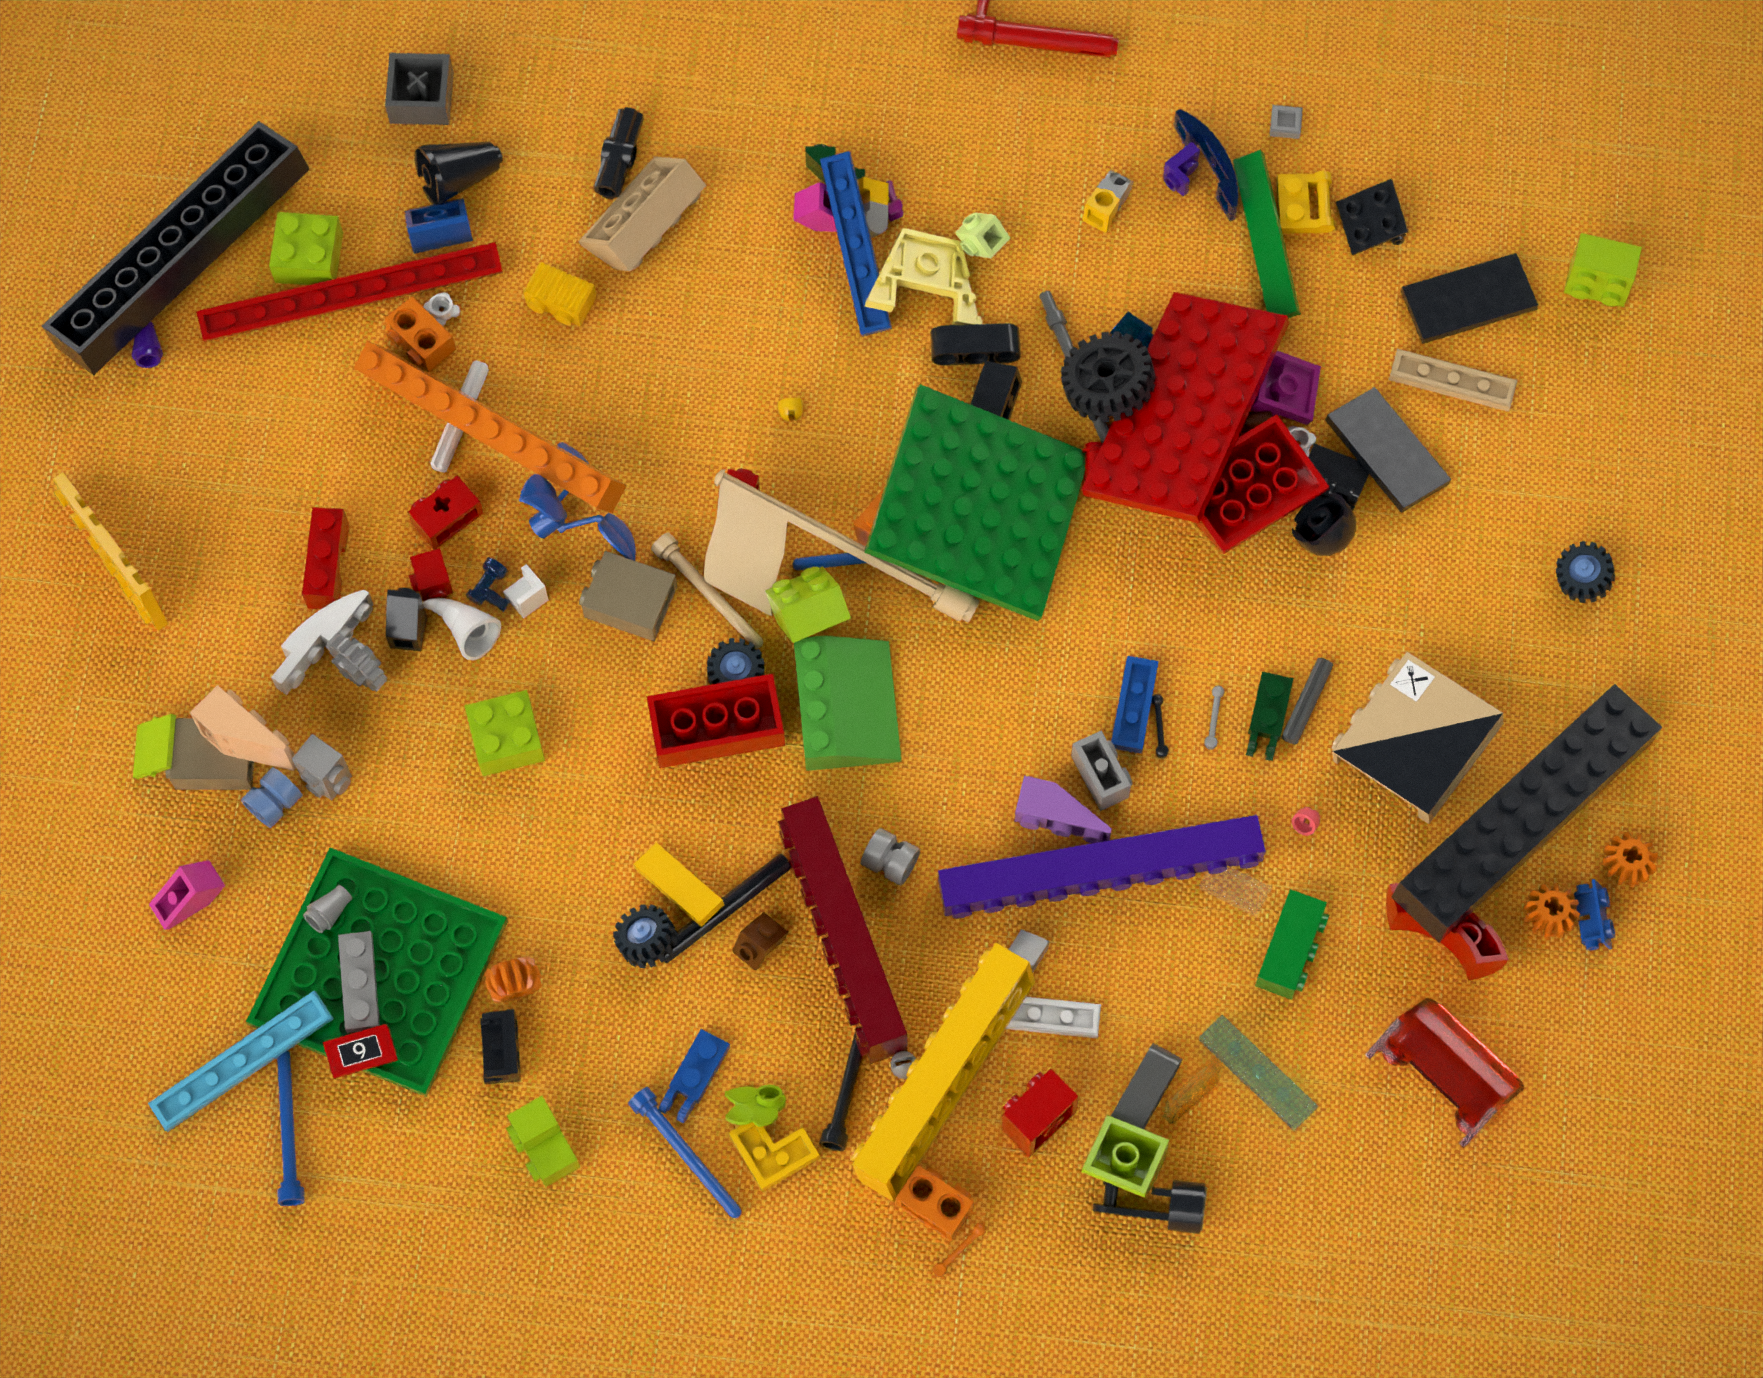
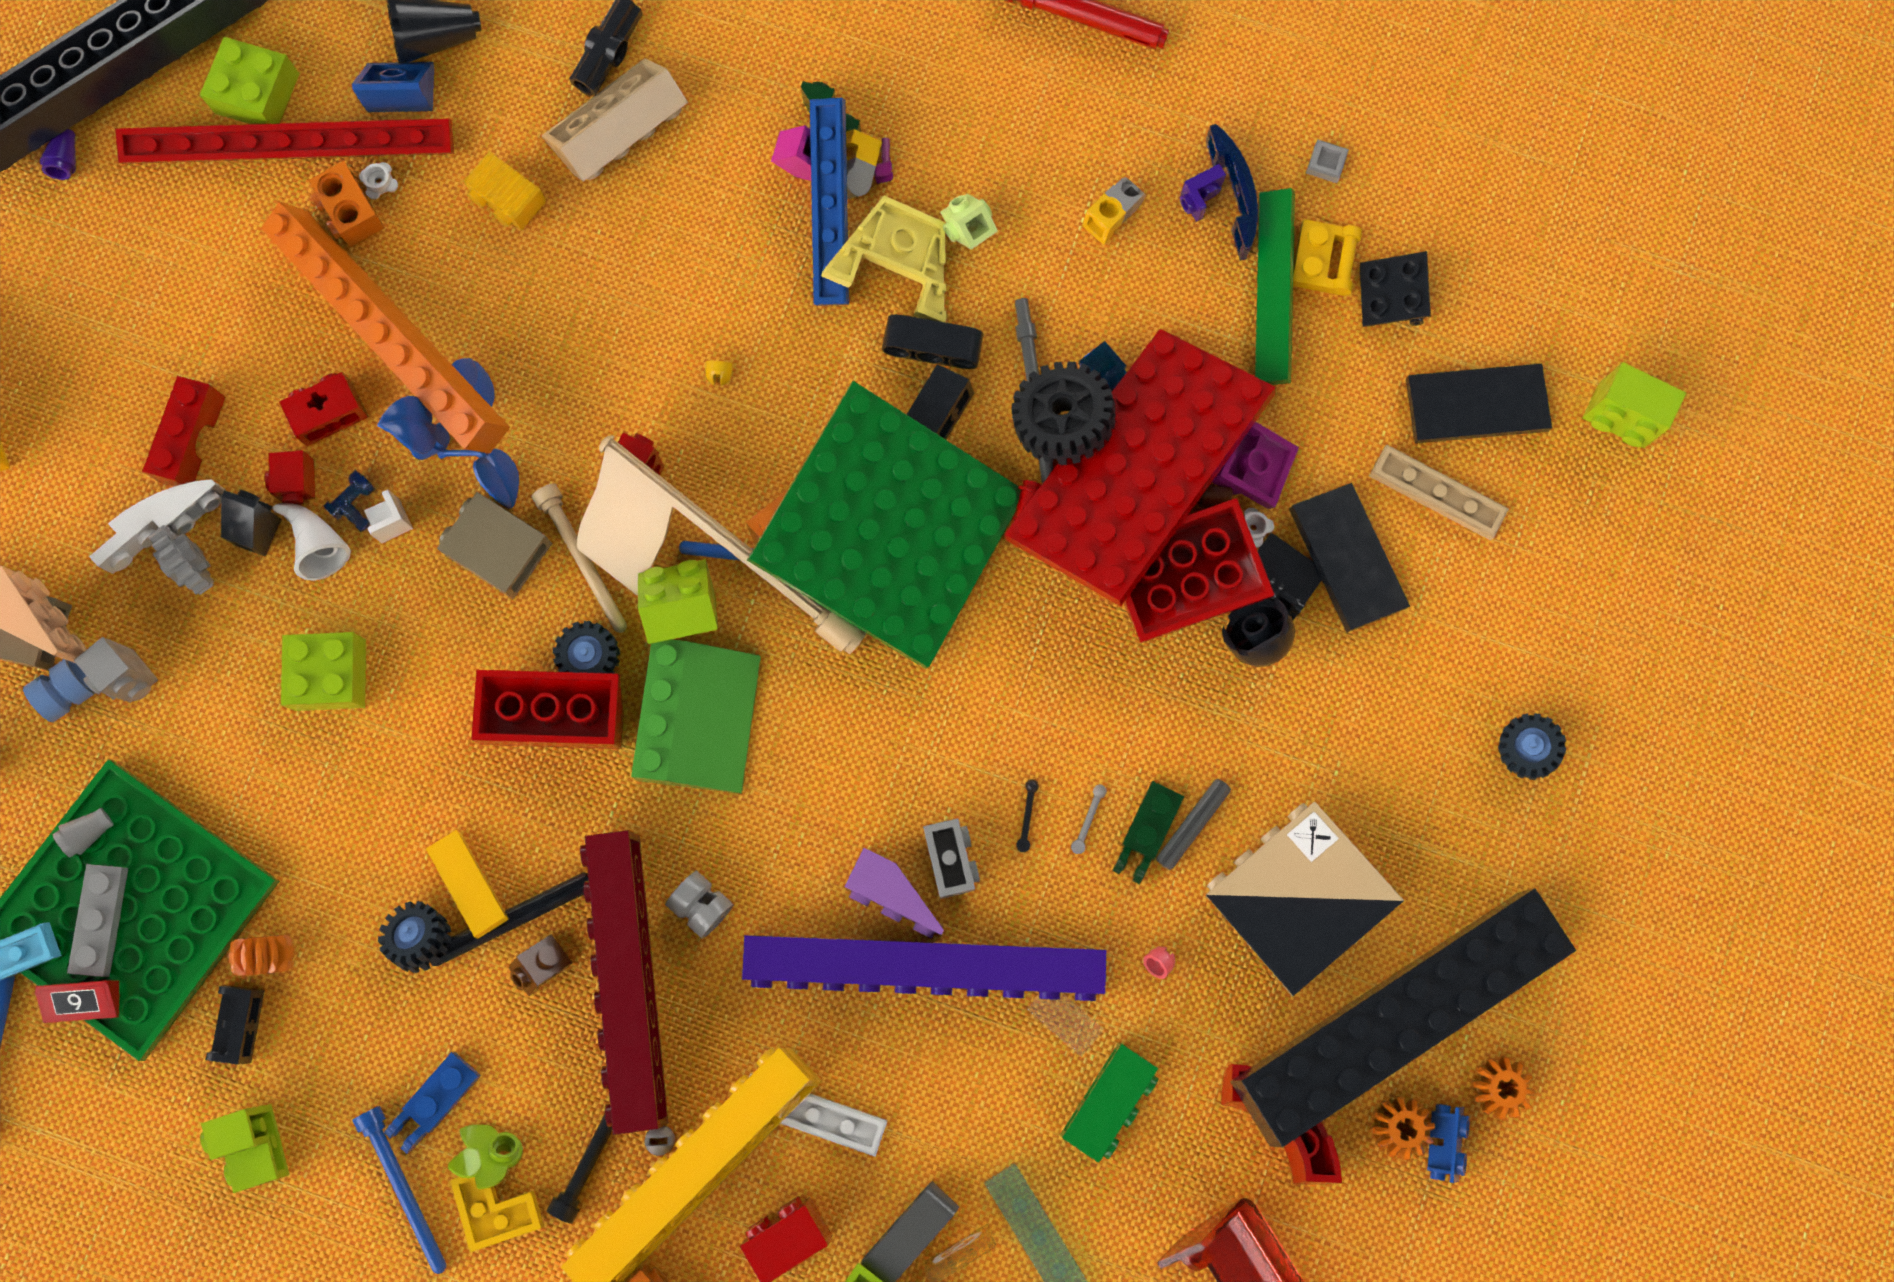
camera: 10 degrees right, 10 degrees up
(451, 434) = (385, 280): white axle -> none
(1030, 947) = (822, 1041): light grey slope -> none
(1134, 704) = (1005, 787): blue plate -> none

